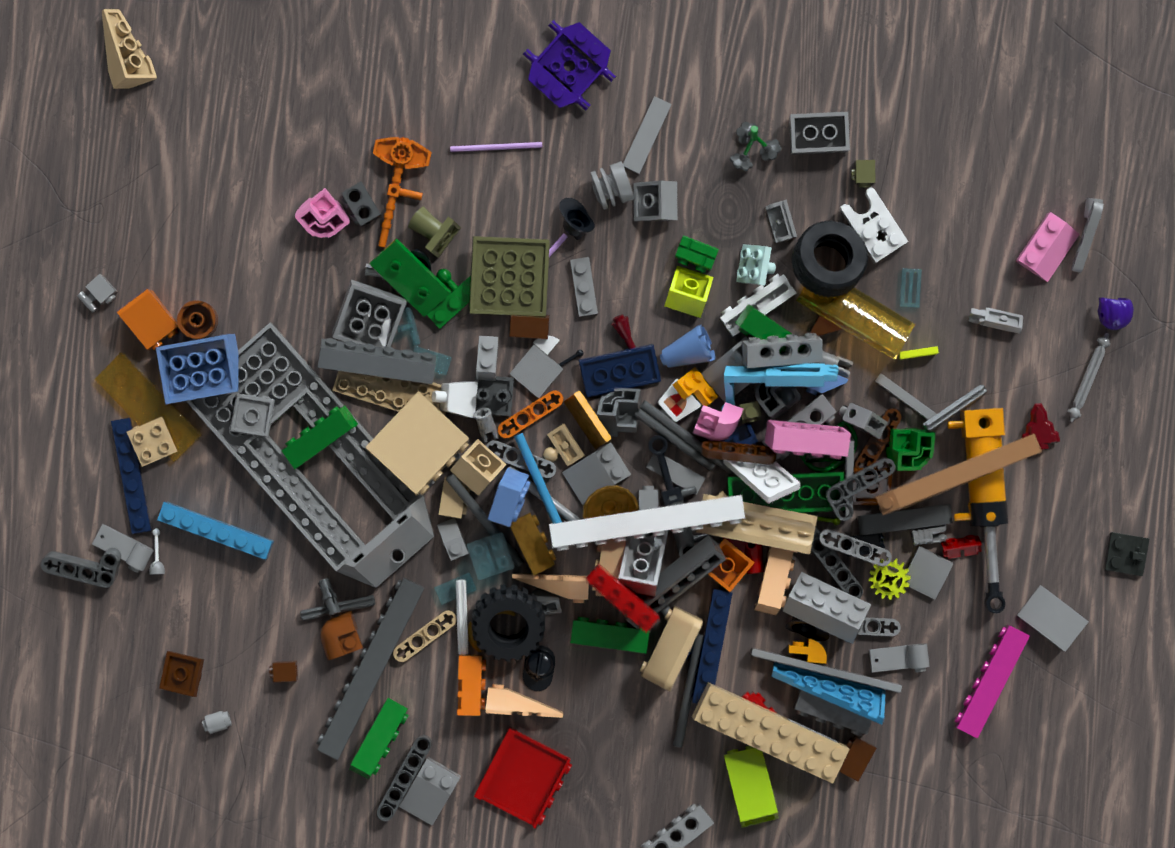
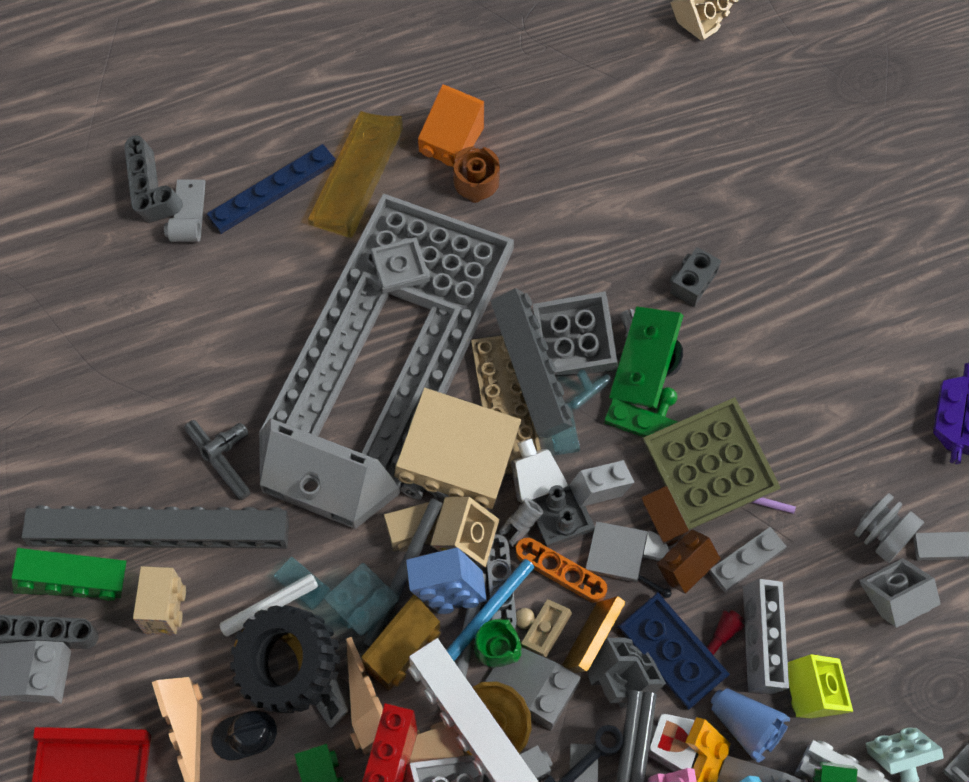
camera: 60 degrees right, 25 degrees down
(100, 290) = (458, 75): light grey brick -> none
(151, 441) = (319, 185): tan hinge -> none
(156, 567) = (179, 252): hinge -> none
(181, 673) = (64, 327): reddish brown hinge -> none
(199, 368) = (427, 189): medium blue slope -> none
(215, 530) = (249, 291): dark azure brick -> none
(217, 722) = (20, 388): light grey brick -> none
(284, 671) = (112, 433): reddish brown brick -> none
(319, 437) = (411, 343): green brick -> none
(322, 215) = (660, 240): bright pink brick -> none
(340, 636) = (182, 473): dark orange brick -> none
(401, 154) = (772, 288): orange bar -> none
(427, 639) = (224, 576): tan beam -> none
(427, 686) = (159, 601): none -> tan brick
(432, 229) = (712, 364): olive plant -> none
(453, 539) = (360, 548): light grey slope -> none
(471, 685) = (185, 655): orange wedge -> none
(495, 147) = (845, 389): lavender axle -> none
(563, 483) = (497, 644): none -> green piece
(568, 329) = (688, 561): none -> reddish brown brick
(576, 218) = (821, 508): black piece -> none
(641, 308) = (765, 637): none -> light grey brick
(696, 253) = (869, 672): green brick -> none

